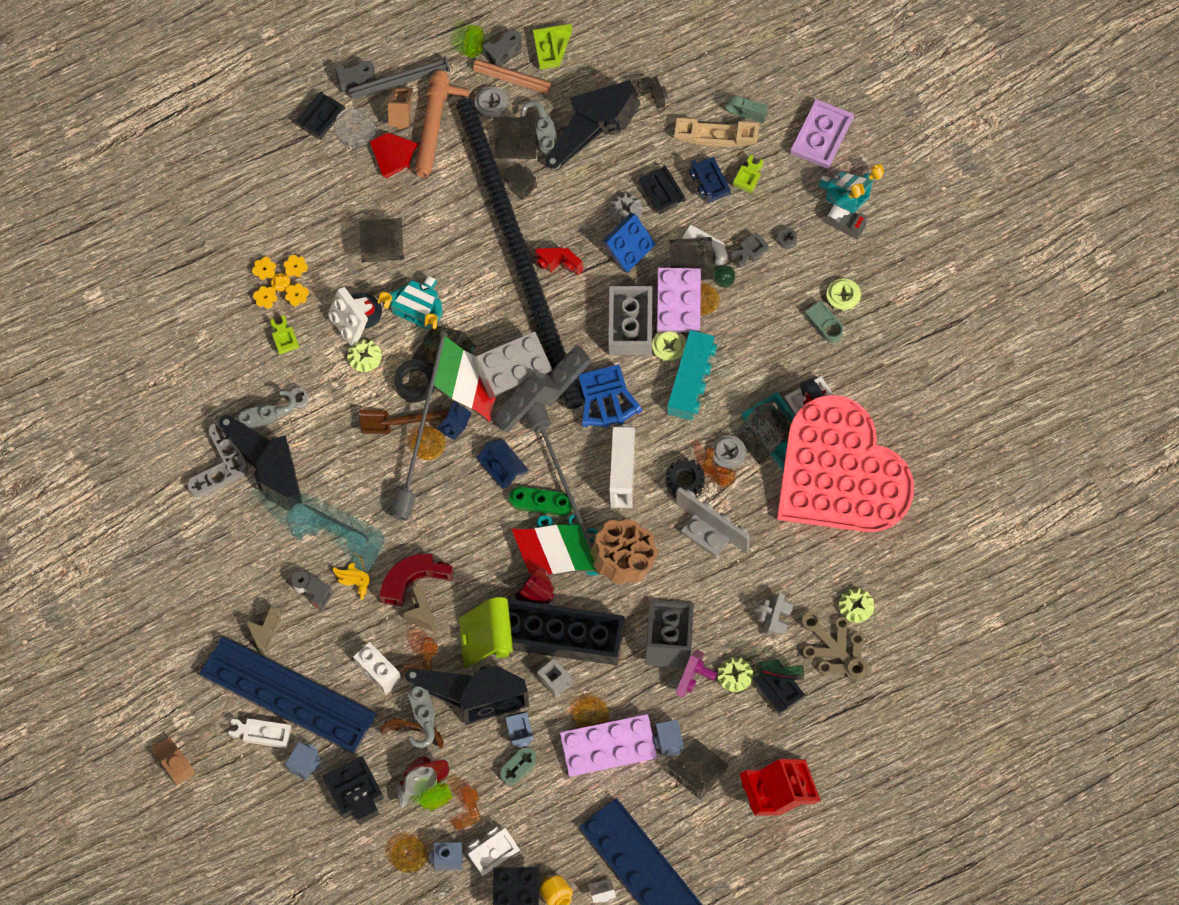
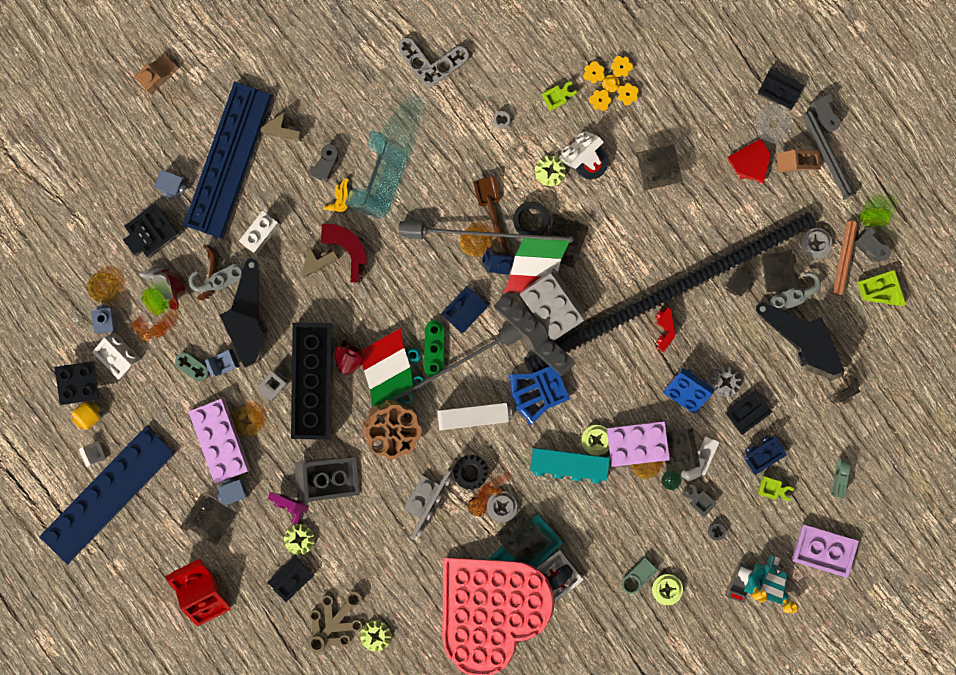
camera: 75 degrees right, 20 degrees up
(262, 732) = (191, 145): white plate -> none
(269, 457) = (432, 111): black slope -> none
(415, 303) = (604, 209): torso -> none
(430, 649) = (283, 275): clear orange plate -> none
(436, 95) = (815, 192): nougat cylinder -> none
(486, 631) = (298, 322): lime door -> none
(630, 320) = (613, 403): light grey brick -> none
(716, 134) = (812, 454): tan slope -> none
(770, 612) = (355, 564): light grey hips -> none
(773, 670) = (299, 576): clear green slope -> none

